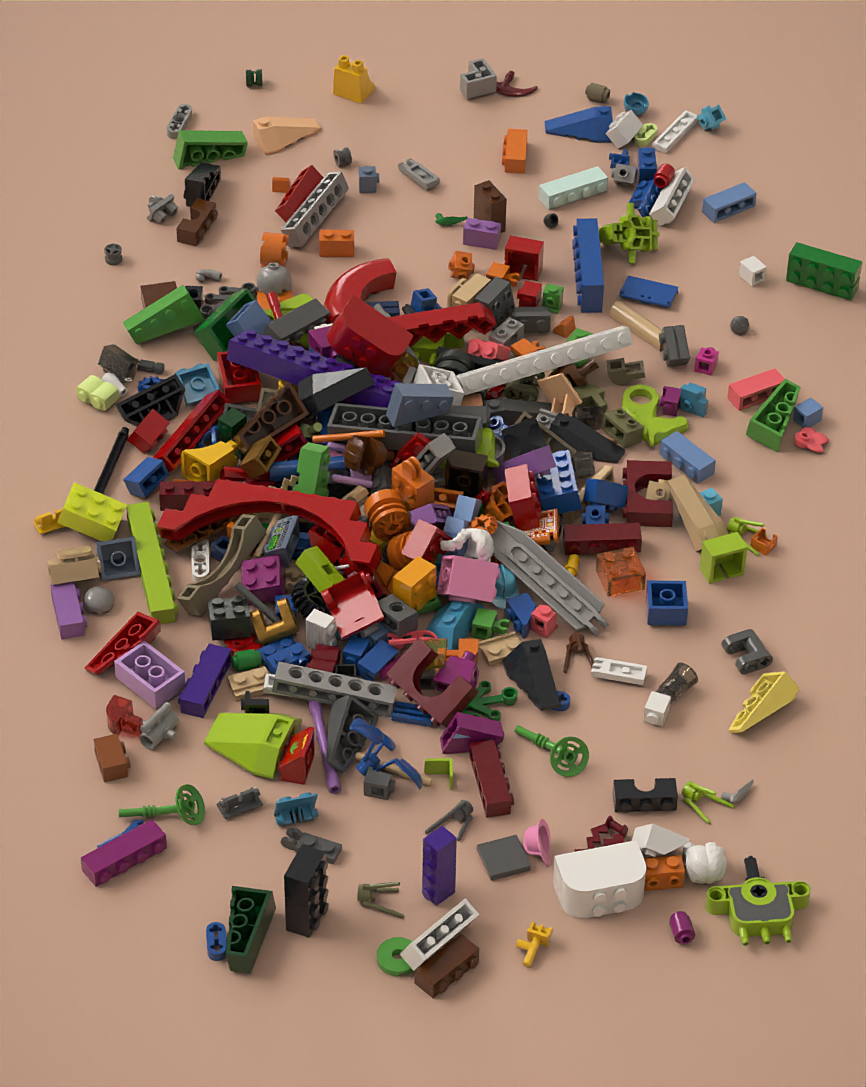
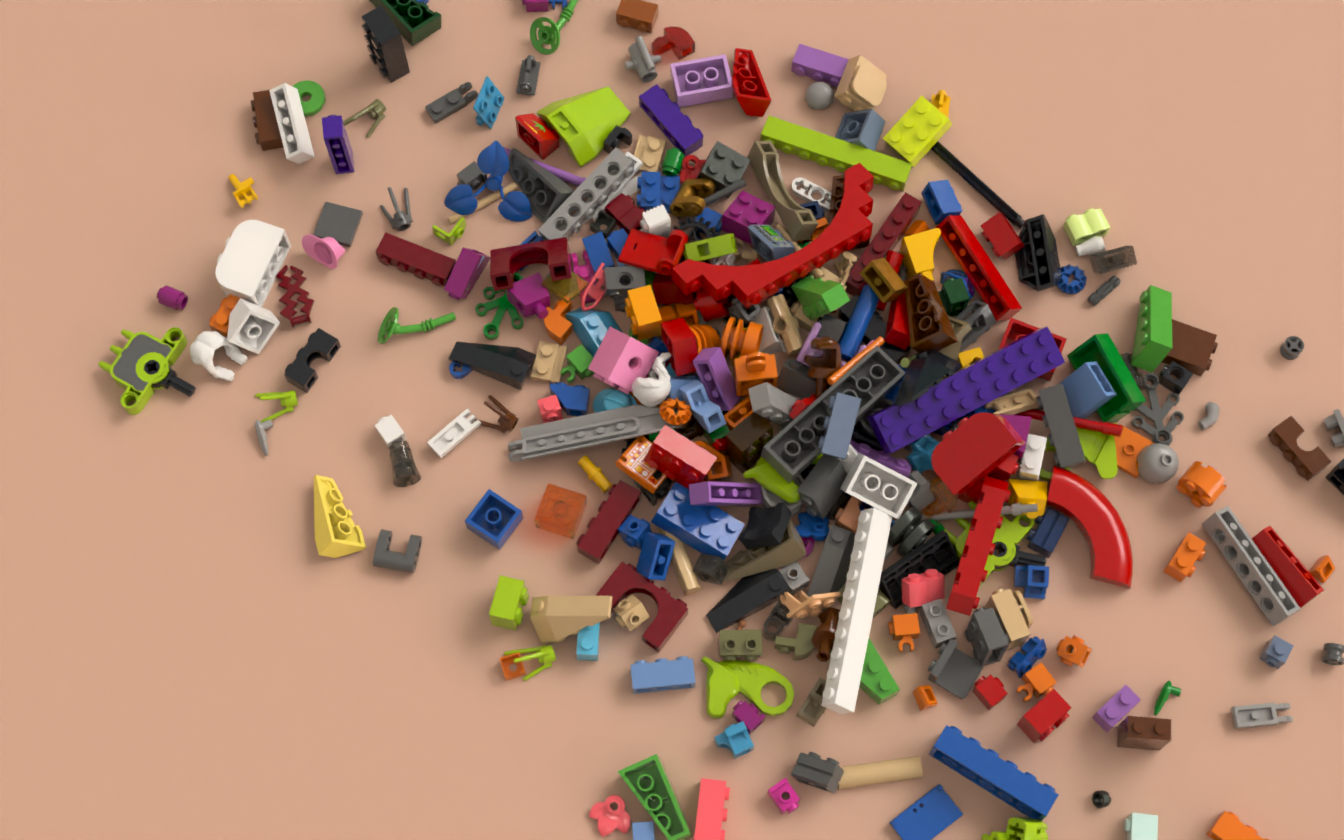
camera: 125 degrees right, 25 degrees up
(197, 383) = (1045, 310): dark azure plate -> none
(553, 298) = (969, 709): bright green brick -> none

